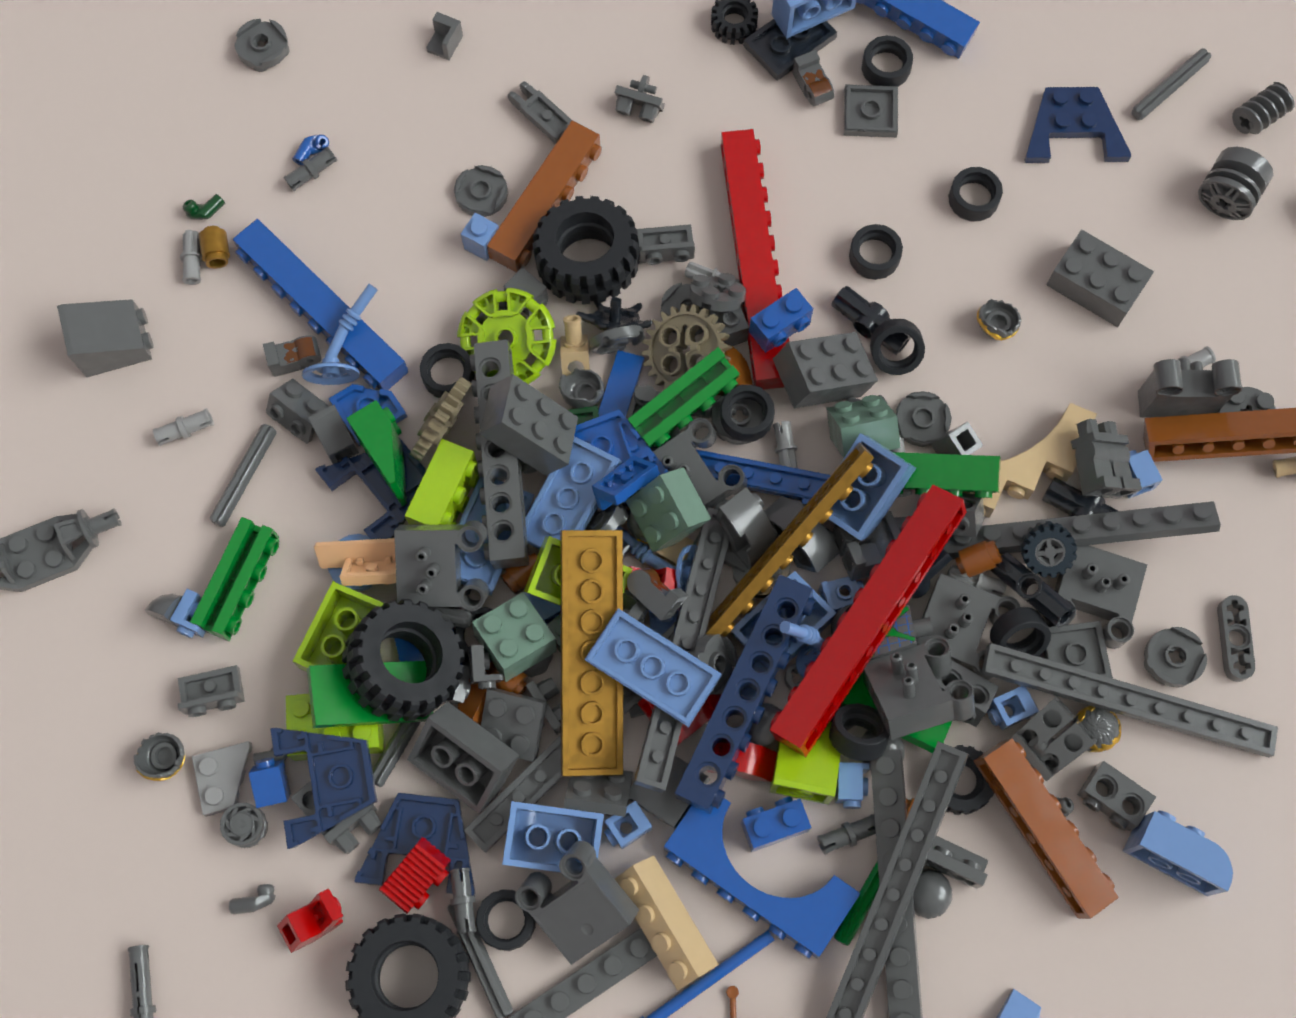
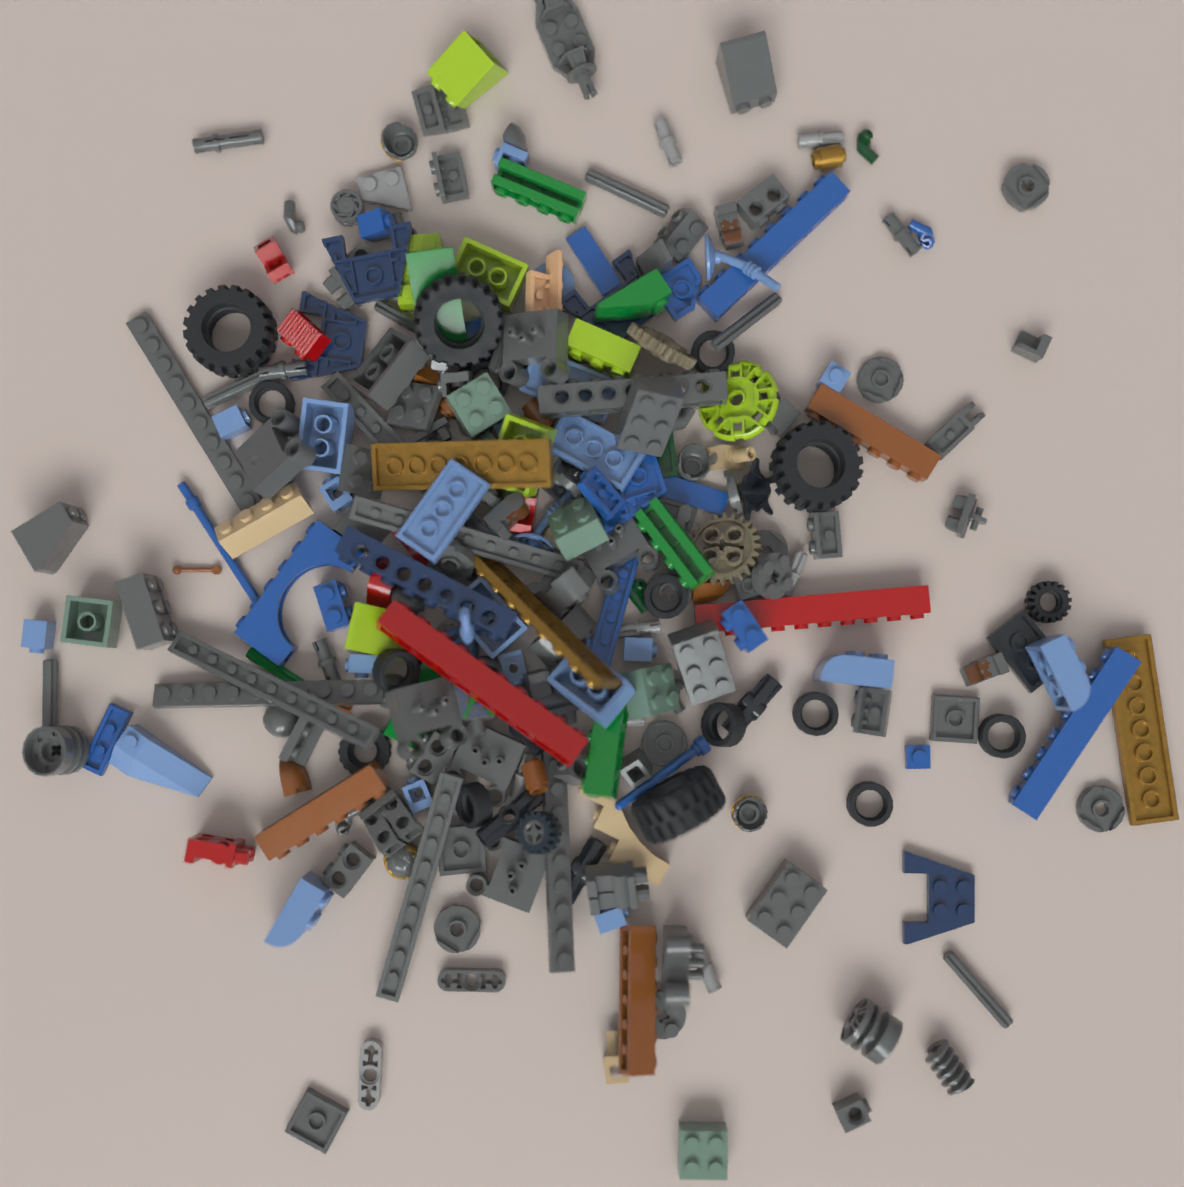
camera: 90 degrees right, 15 degrees up
(73, 671) = (466, 71): none -> lime slope
(119, 707) = (436, 114): none -> dark grey slope
(263, 318) = (759, 199): none -> dark grey brick
(328, 512) = (593, 261): none -> blue tile
(411, 331) = (746, 321): none -> dark grey axle
(531, 973) = (232, 422): none -> medium blue brick
(745, 451) = (636, 595): none -> dark green arm
(811, 447) = (639, 649): none -> medium blue brick
(823, 205) = (856, 669): none -> medium blue brick
(869, 191) = (871, 711): none -> dark grey bracket
(916, 147) = (917, 757): none -> blue plate
(925, 377) = (699, 747): none -> blue piece
(1000, 386) = (678, 804): none -> black tyre
(1005, 872) = (293, 778): none -> dark orange brick
(1111, 967) = (218, 850): none -> red hips

